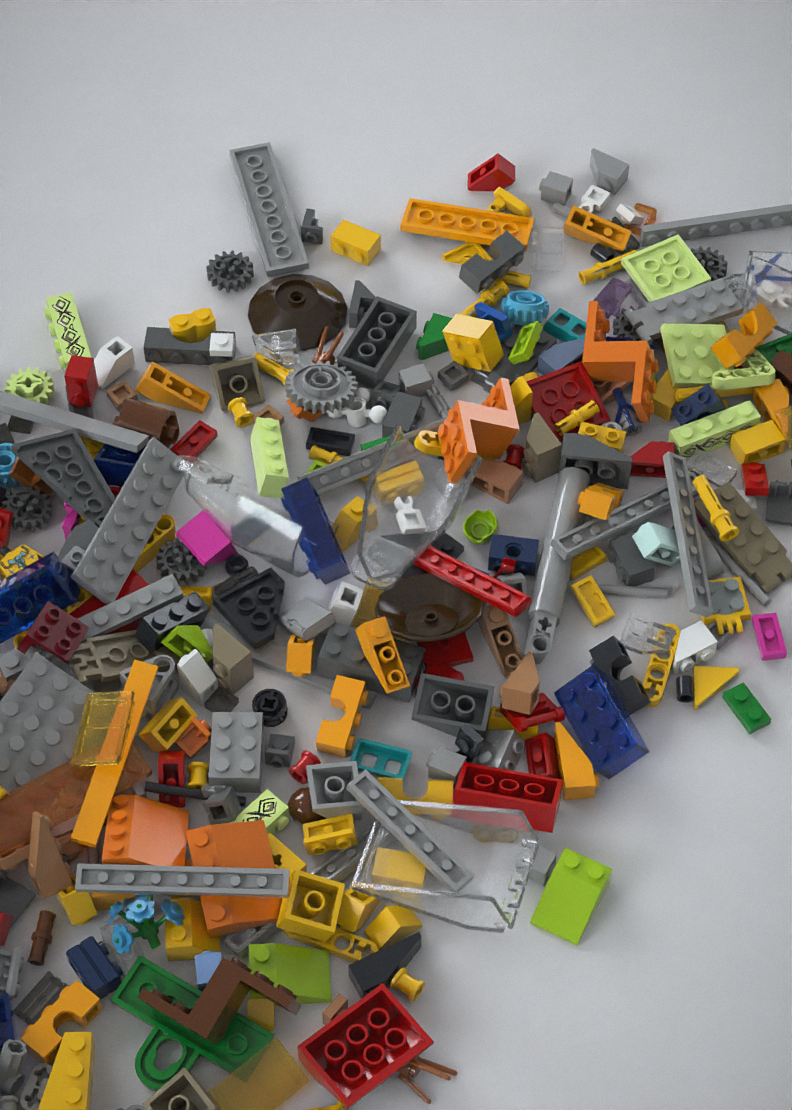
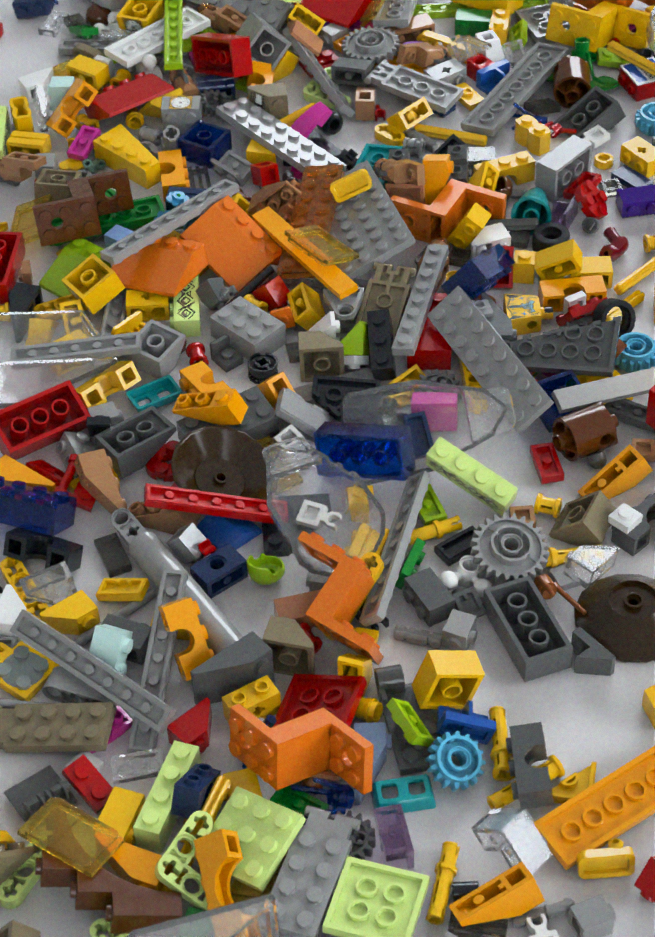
camera: 135 degrees right, 10 degrees down
(54, 632) = (424, 261): dark red bracket -> none
(433, 340) = (497, 686): green slope -> none
(567, 643) = (112, 555): none -> clear smoke tile
(576, 417) = (289, 696): yellow pin -> none
(650, 606) = (72, 615): none -> yellow slope
(719, 516) = (75, 698): yellow pin -> none

